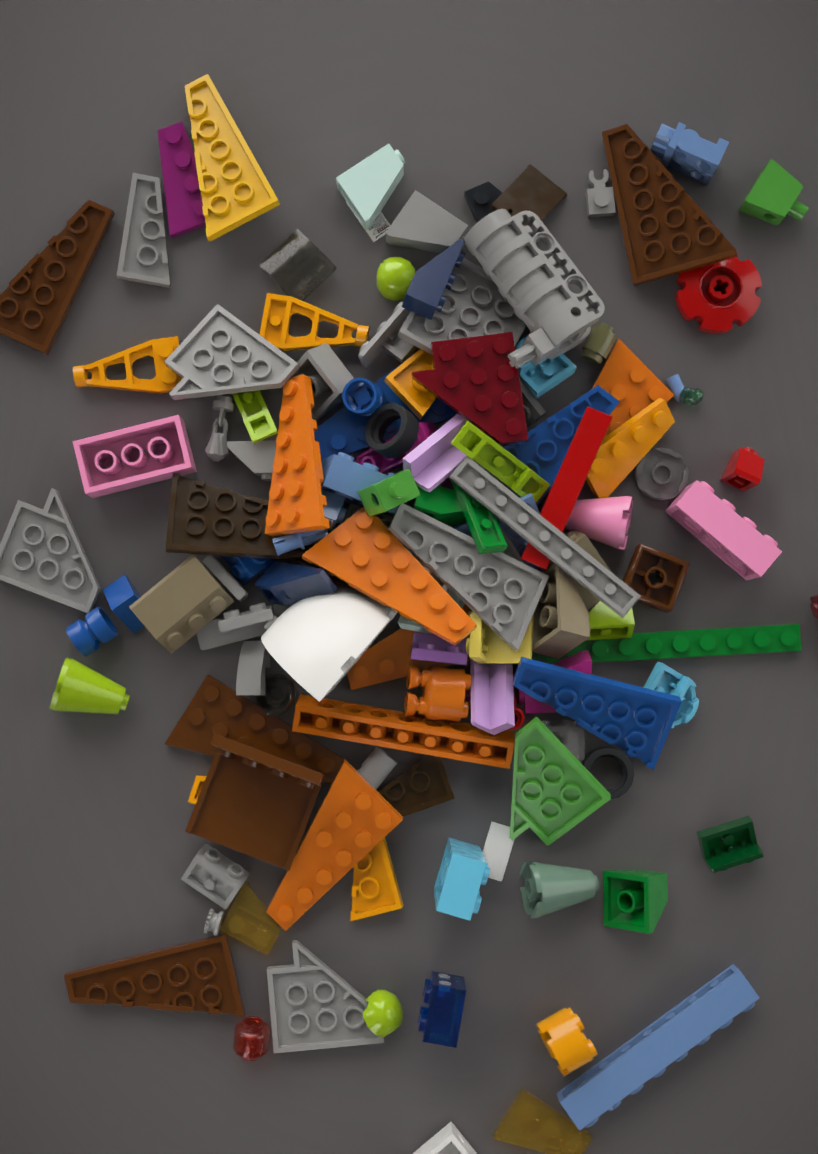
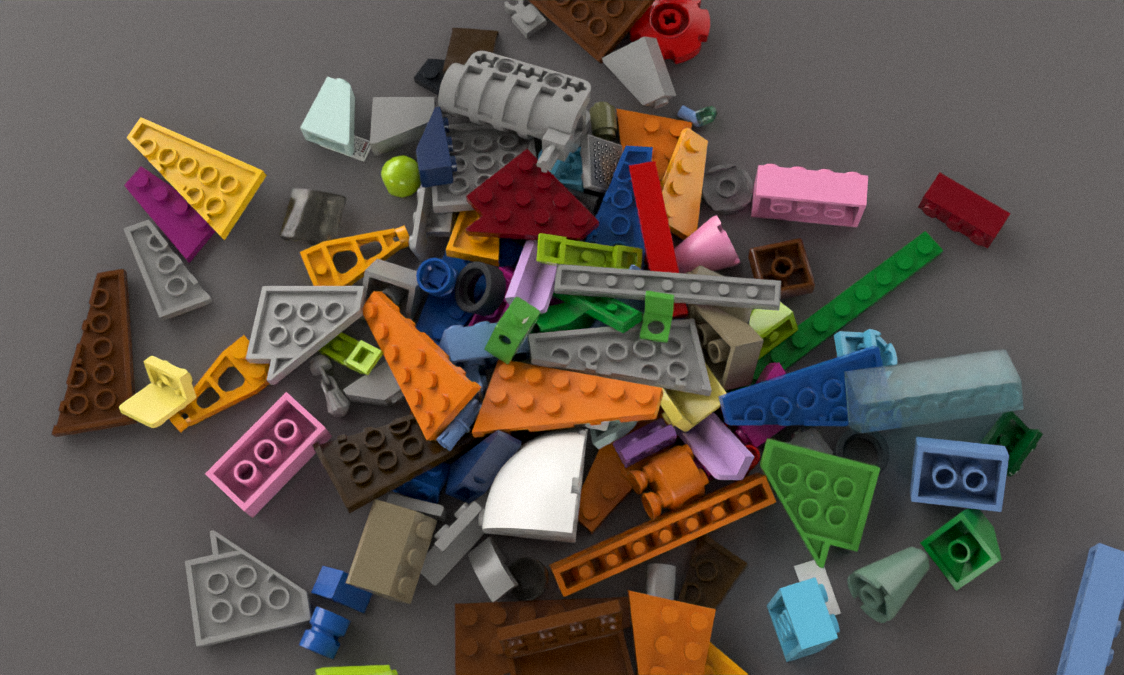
camera: 25 degrees left, 15 degrees down
(76, 348) = (165, 395): none -> light yellow bracket
(523, 551) = (657, 308): none -> bright green bracket
(567, 382) = (598, 162): none -> tile
(663, 322) = (642, 71): none -> light grey slope
(670, 844) = (959, 474): none -> medium blue brick
(699, 765) = (932, 391): none -> clear light blue slope
(743, 469) = (790, 142): red slope -> none

